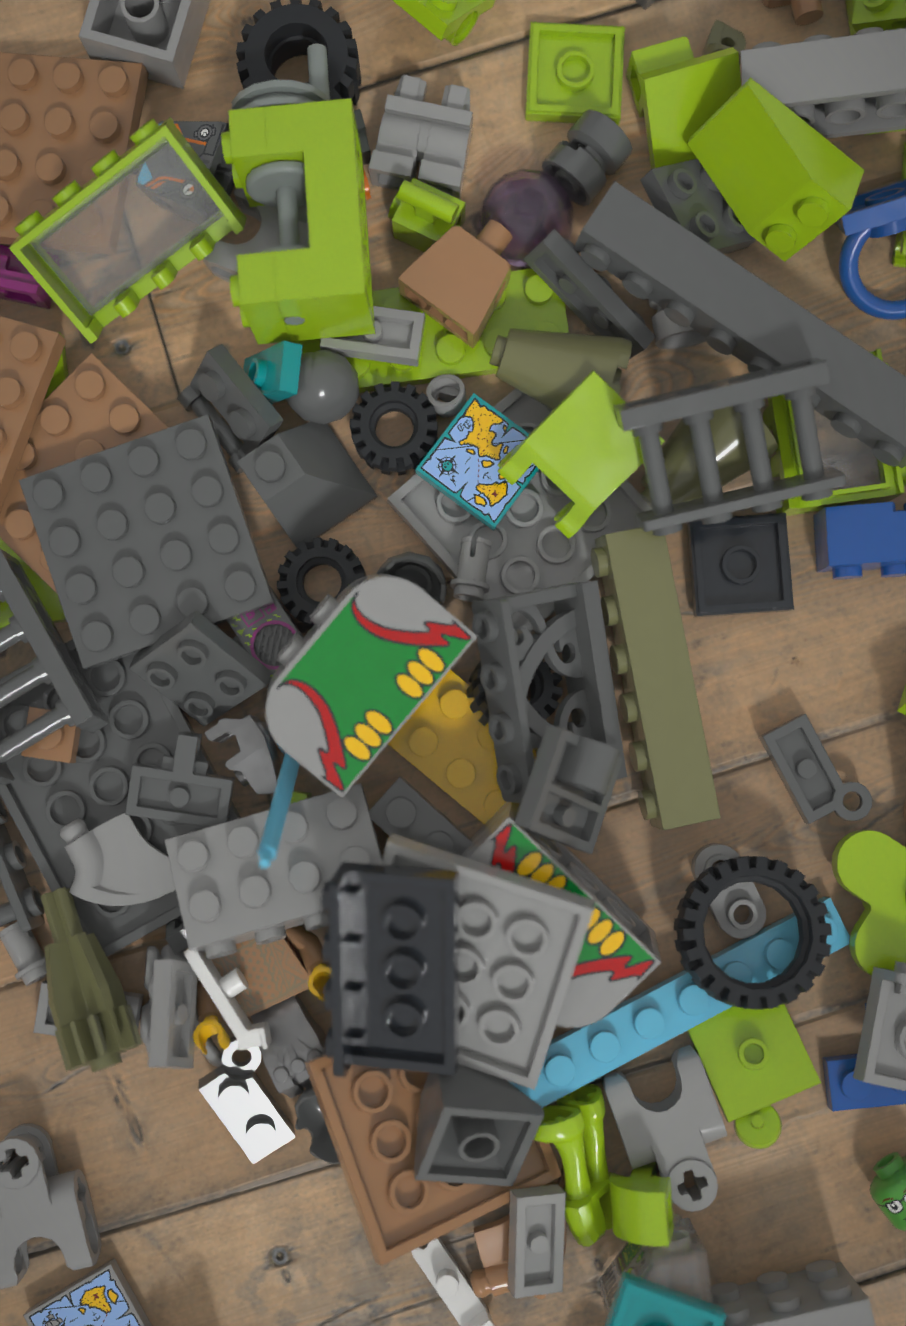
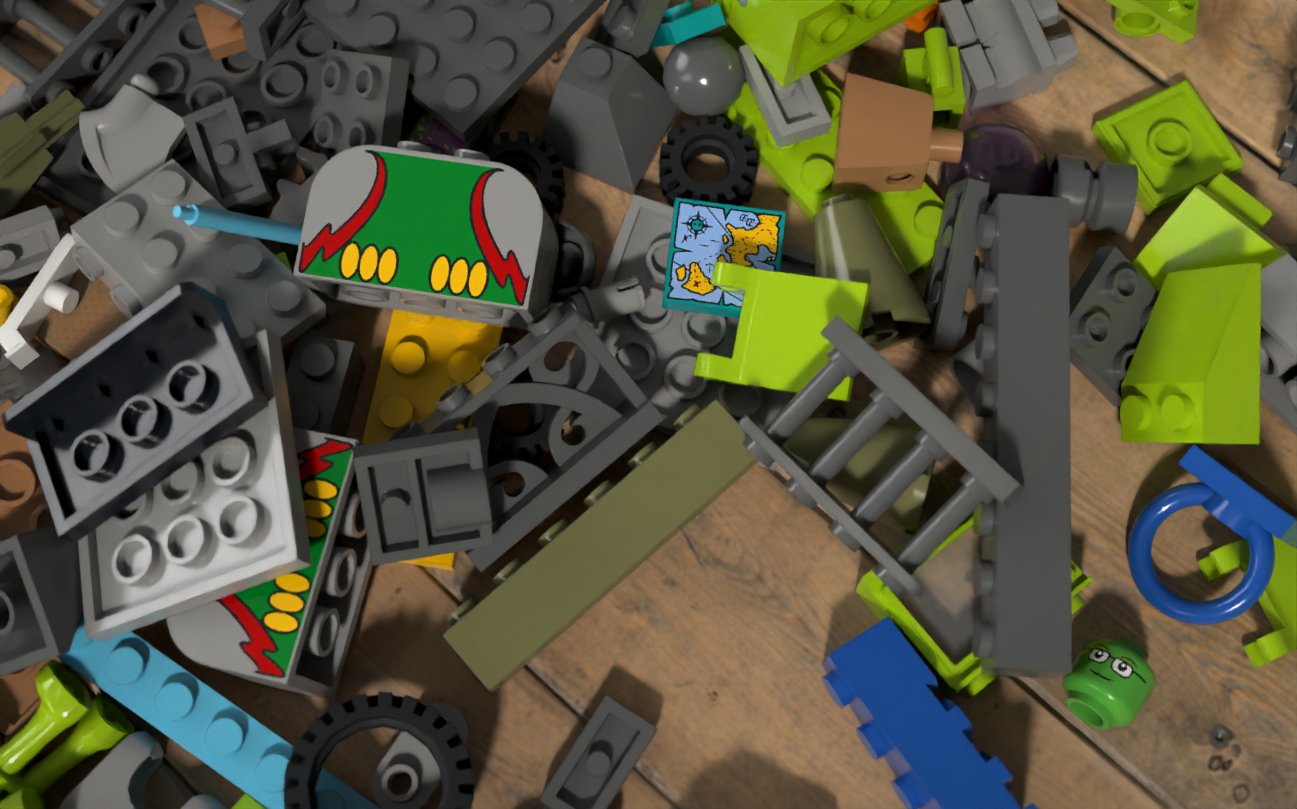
camera: 60 degrees right, 15 degrees down
(451, 391) = (778, 191): light grey hinge -> none
(740, 566) = (777, 574): black plate -> none

